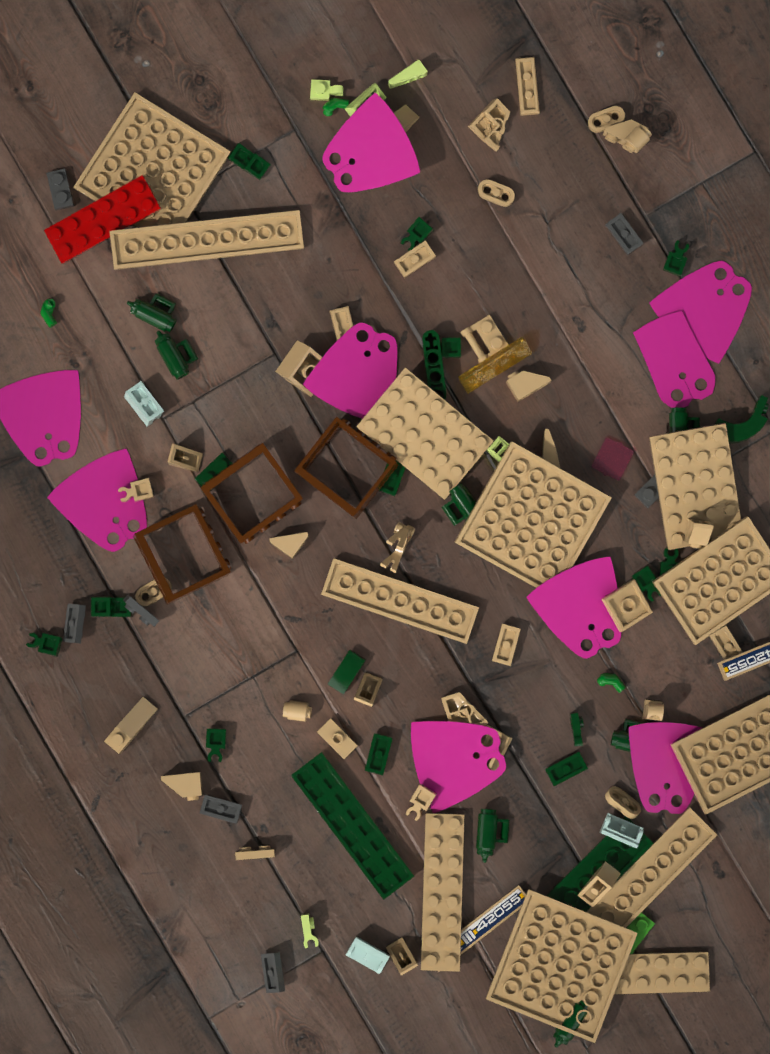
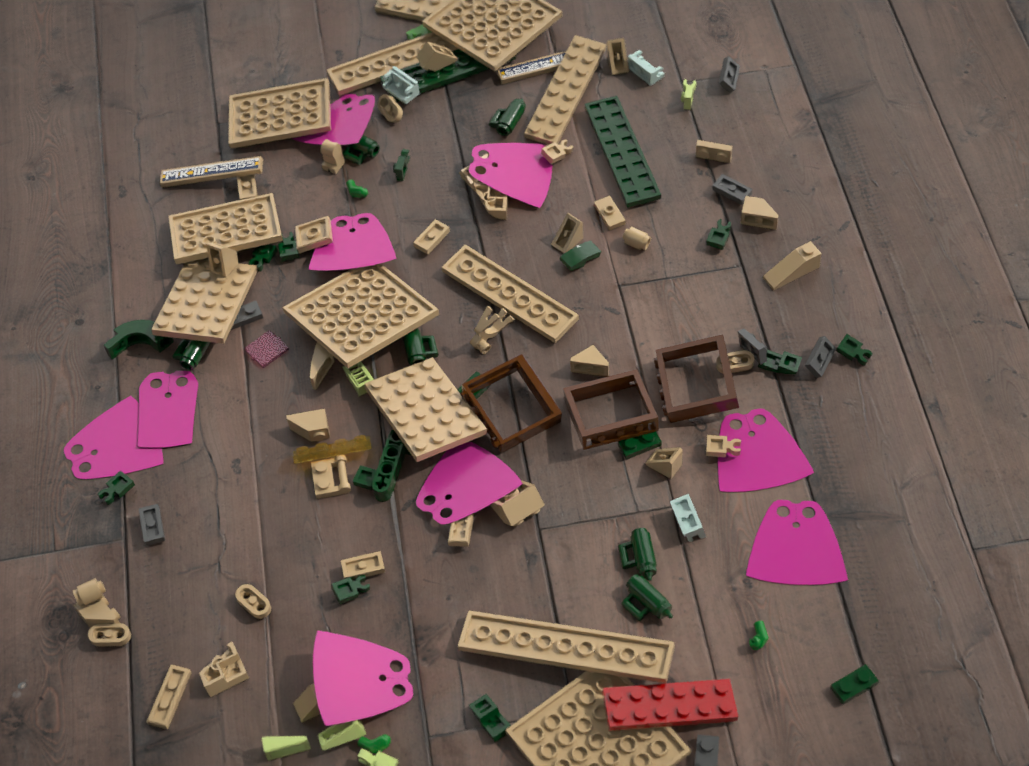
camera: 155 degrees left, 30 degrees down
(378, 754) = (578, 191): dark green plate -> none
(566, 769) = (424, 142): dark green plate -> none

